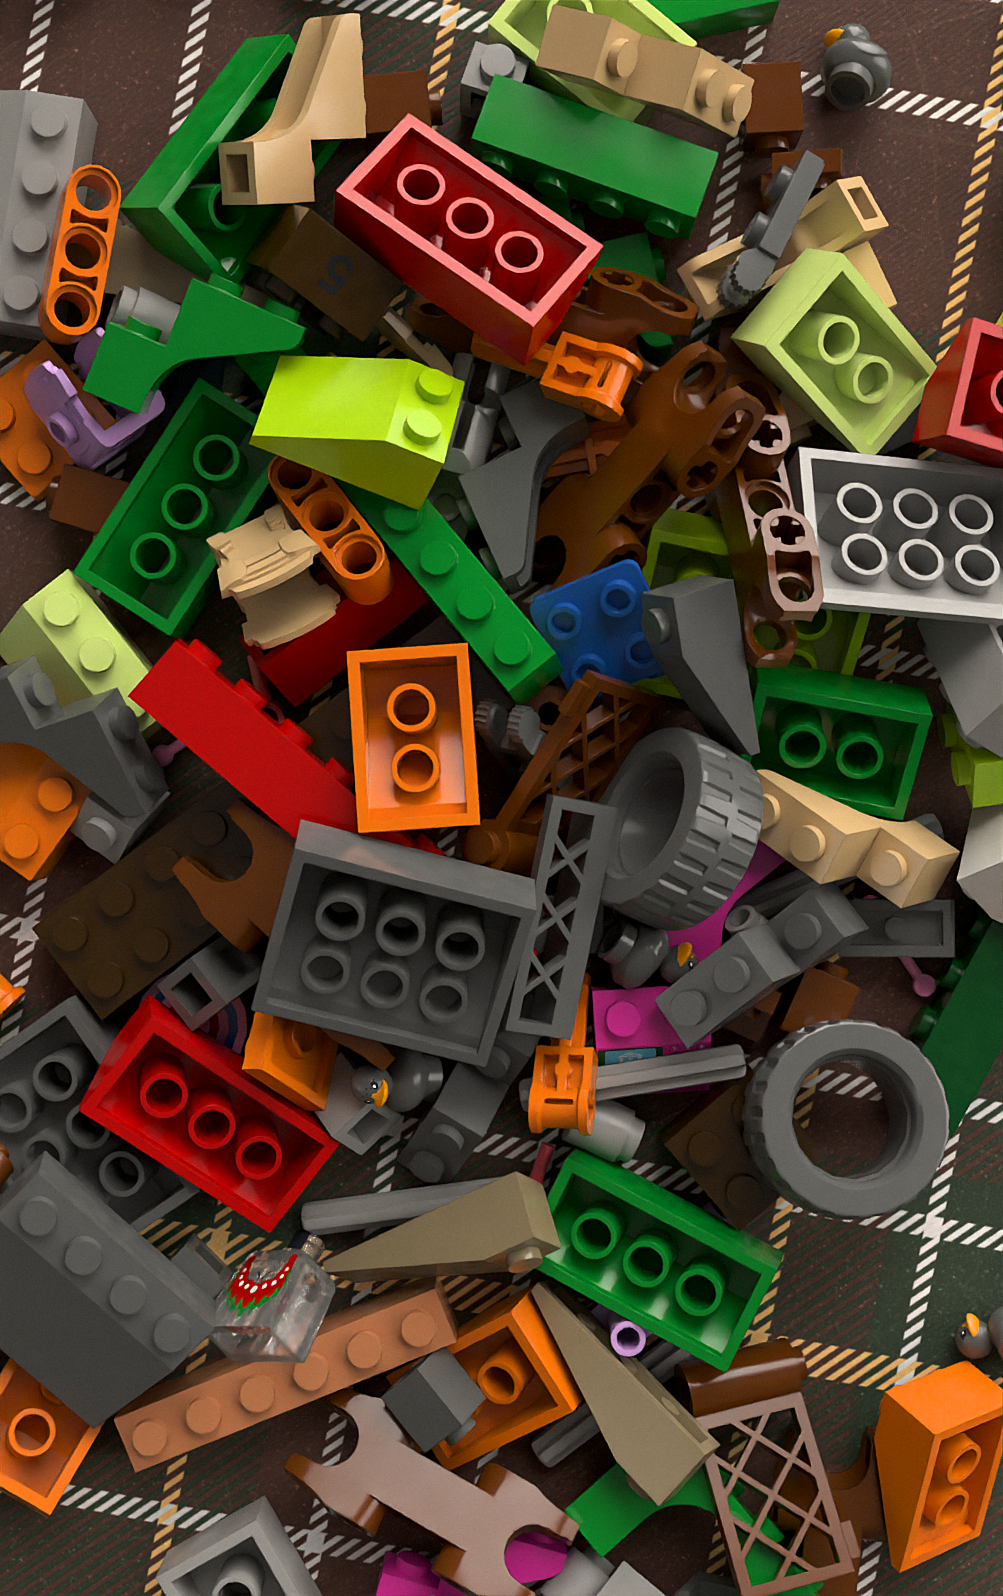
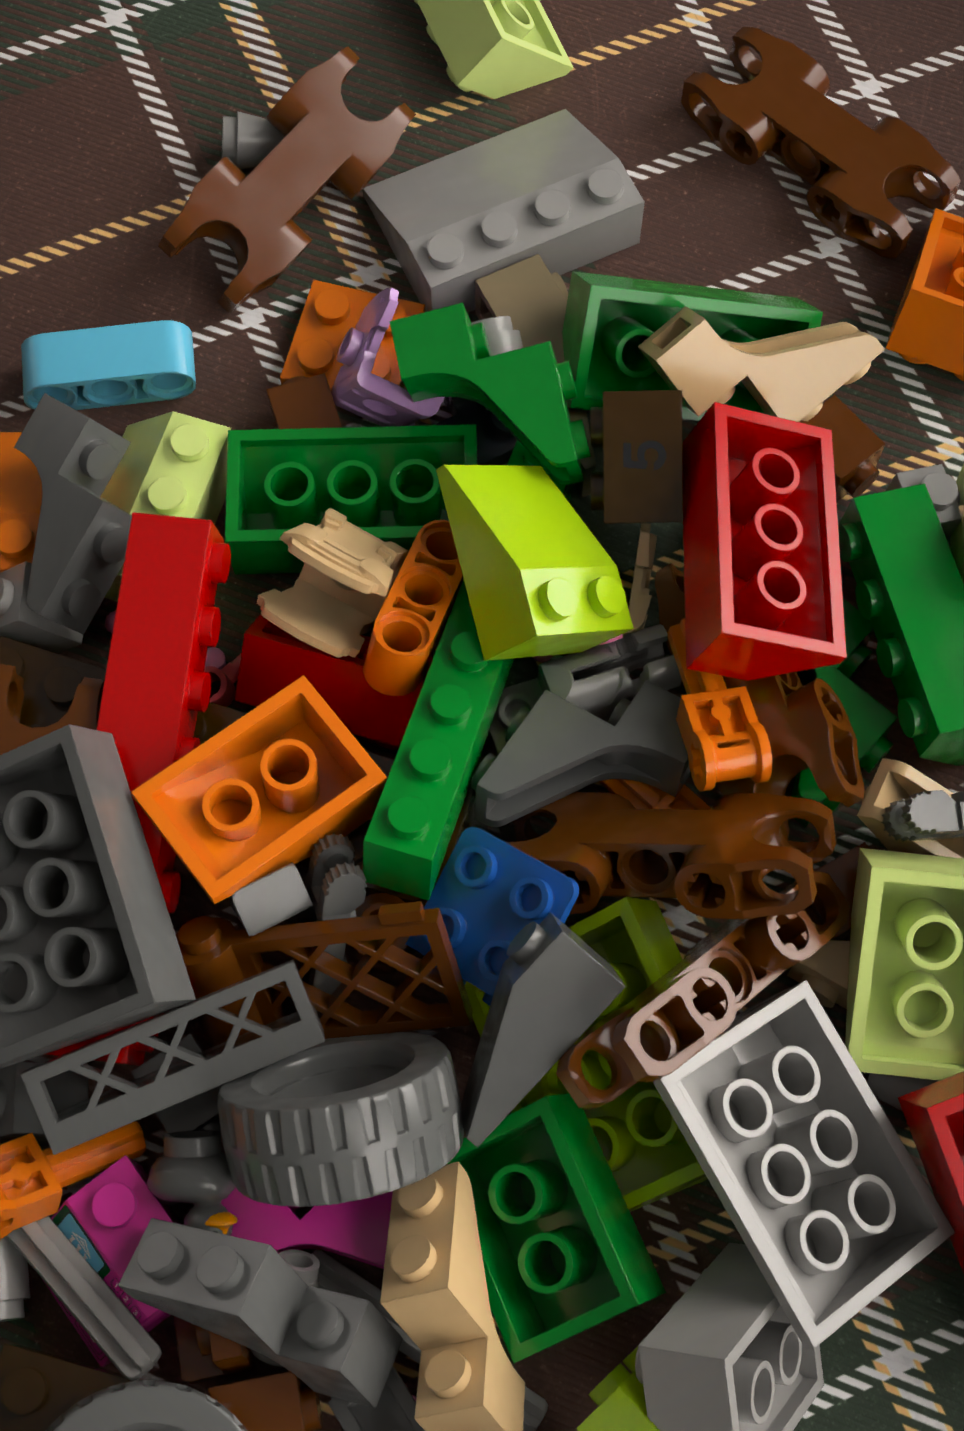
camera: 55 degrees right, 20 degrees down
(96, 233) = (527, 246): orange beam -> none
(495, 780) = (270, 899): none -> slope

